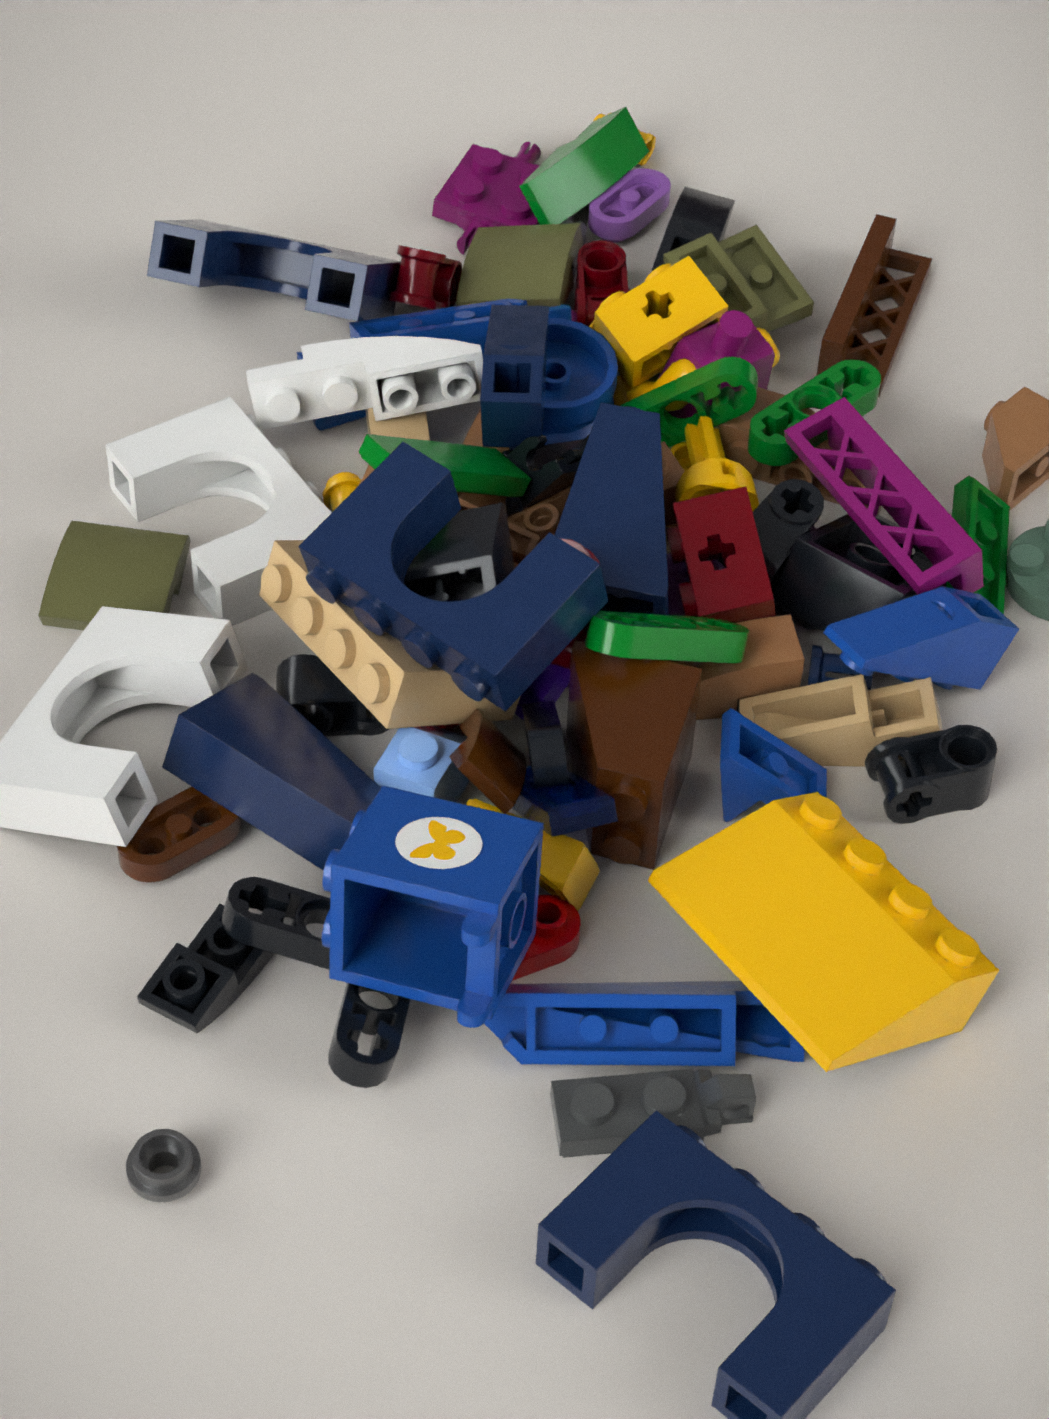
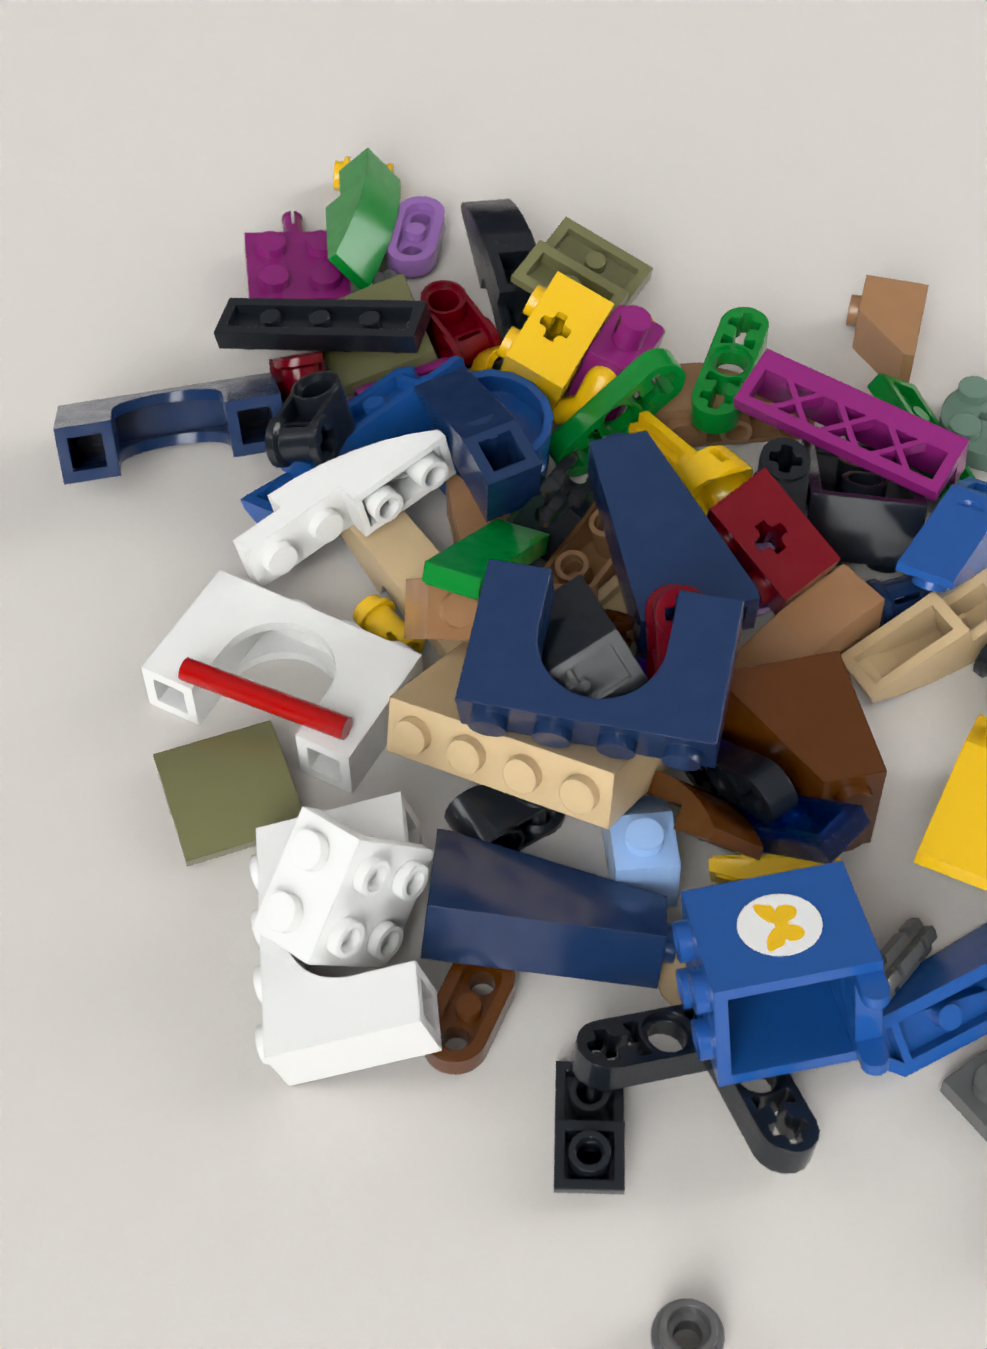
camera: 25 degrees left, 5 degrees up
(122, 678) = (341, 893): none -> white bracket
(184, 509) = (265, 698): none -> red bar
(383, 302) = (310, 422): none -> black piece
(473, 238) = (323, 325): none -> black plate
(582, 963) = (905, 952): none -> dark grey axle
(666, 637) = (788, 634): green beam -> none
(761, 767) = (910, 713): blue slope -> none
(857, 308) = (674, 261): reddish brown fence -> none

